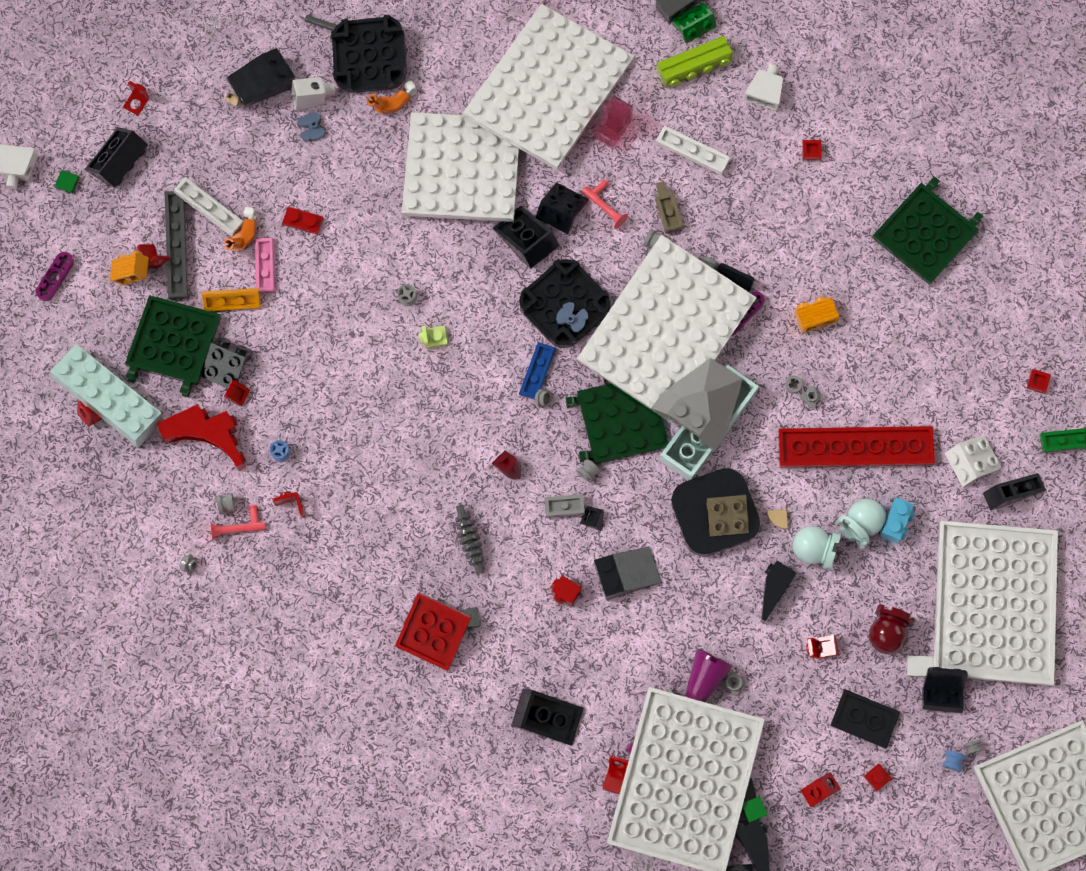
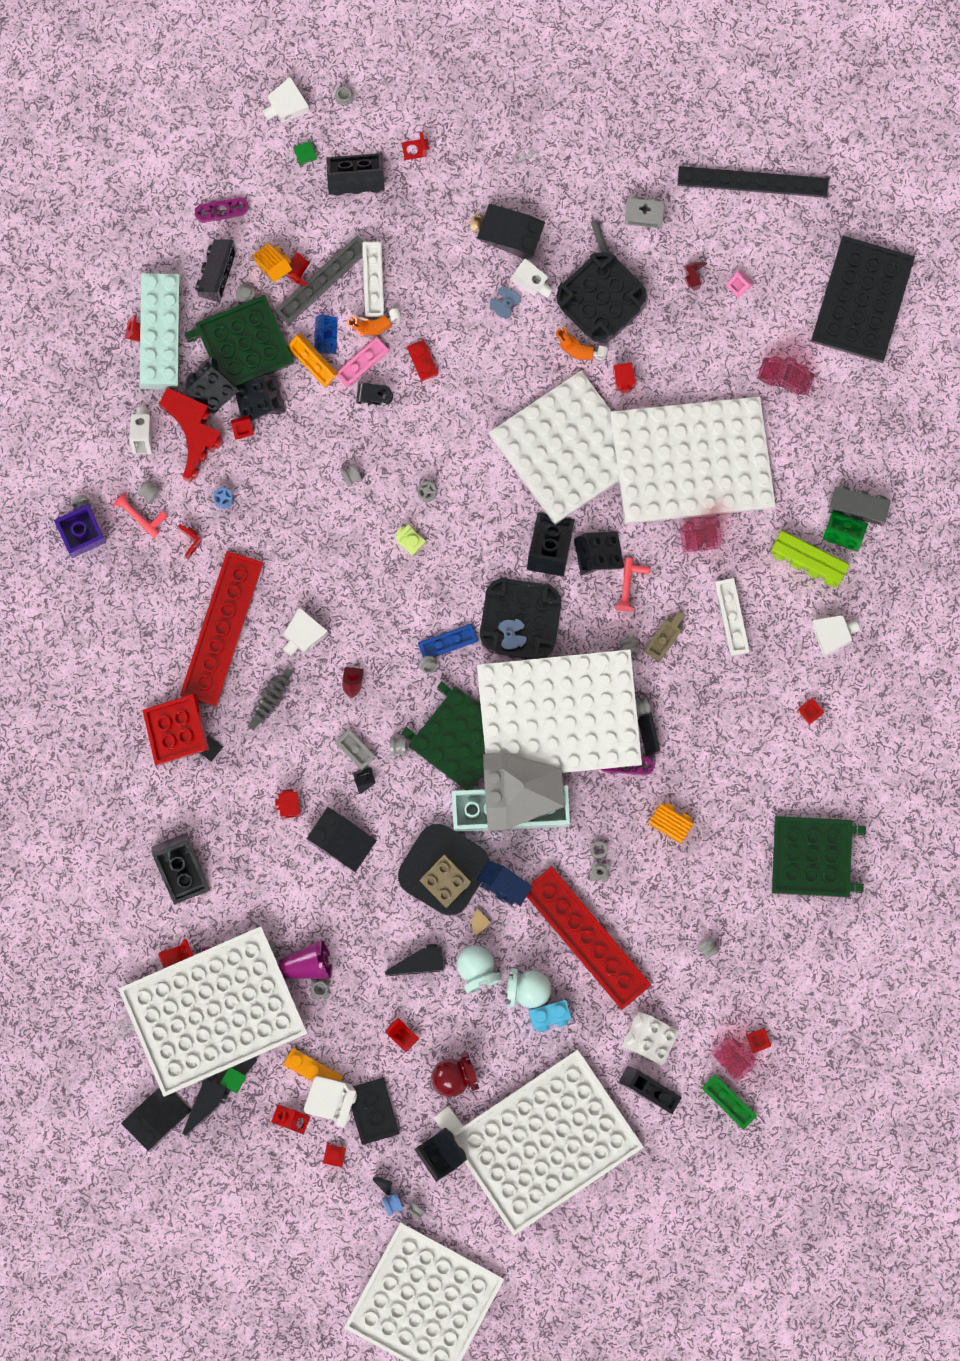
camera: 50 degrees right, 5 degrees up
(49, 119) = (344, 95): none -> light grey plate
(96, 315) = (216, 270): none -> black slope
(135, 309) = (245, 293): none -> light grey plate
(173, 471) = (141, 432): none -> white torso
(183, 389) = (210, 386): none -> black bracket
(210, 581) = (80, 531): none -> dark purple brick
(219, 275) = (326, 334): none -> clear blue slope
(295, 276) = (372, 394): none -> black piece
(345, 341) = (351, 475): none -> light grey wheel
(382, 533) = (222, 628): none -> red plate
(439, 473) = (303, 633): none -> white torso
(443, 85) = (624, 377): none -> red brick
(766, 472) = (504, 884): none -> dark blue brick
(795, 740) = (309, 1067): none -> light orange plate
(833, 743) = (330, 1100): none -> white bracket
(932, 756) = (384, 1185): none -> black slope
(937, 362) = (708, 948): none -> light grey wheel
(1042, 410) = (733, 1060): none -> clear pink brick

